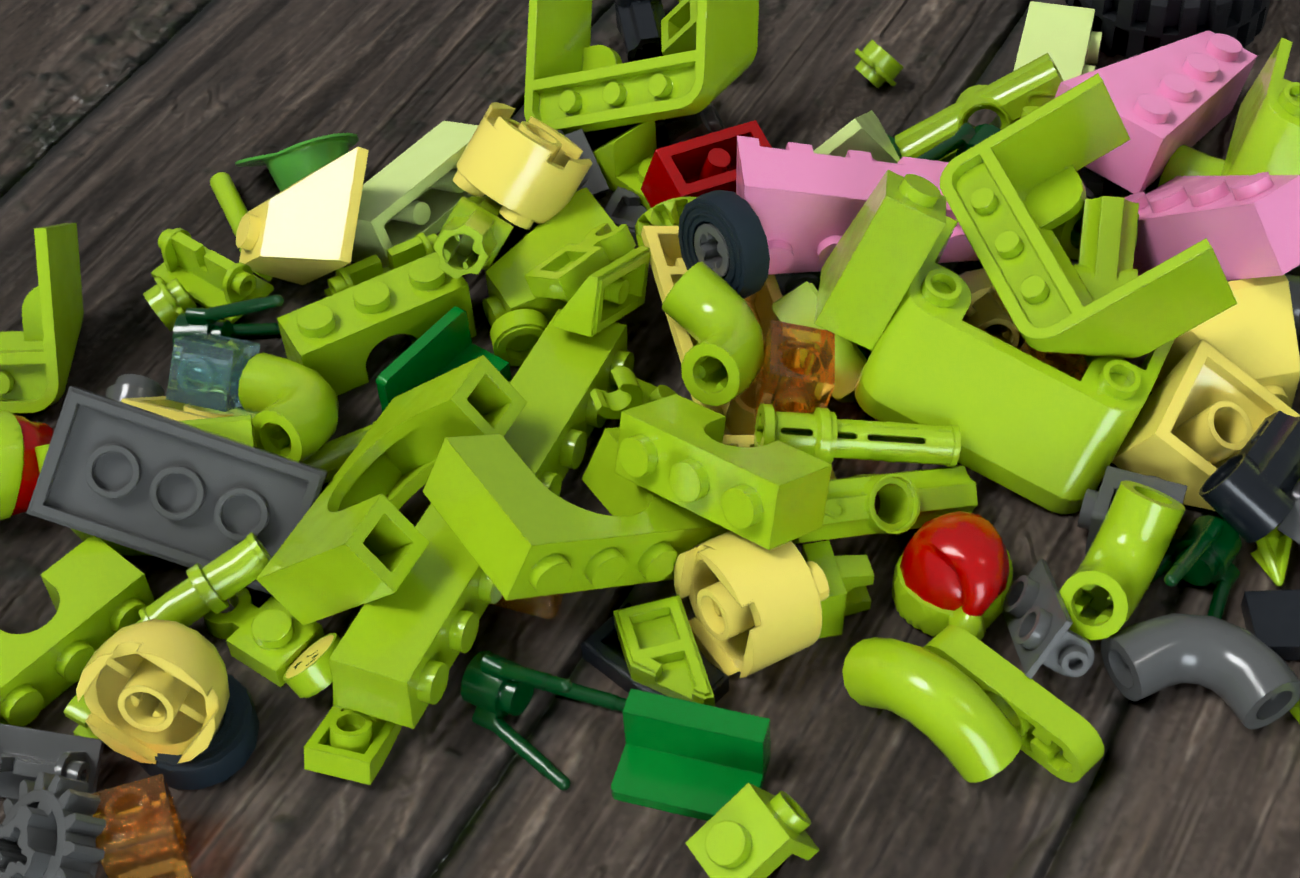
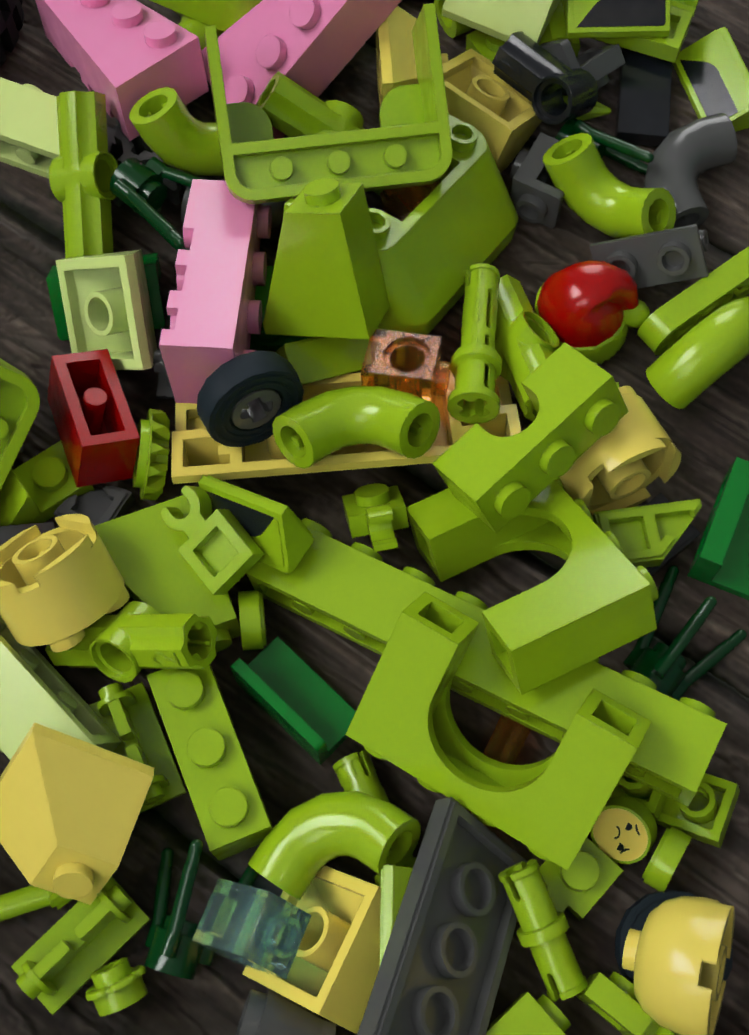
camera: 85 degrees left, 20 degrees up
(287, 707) = (666, 858): none -> lime tile

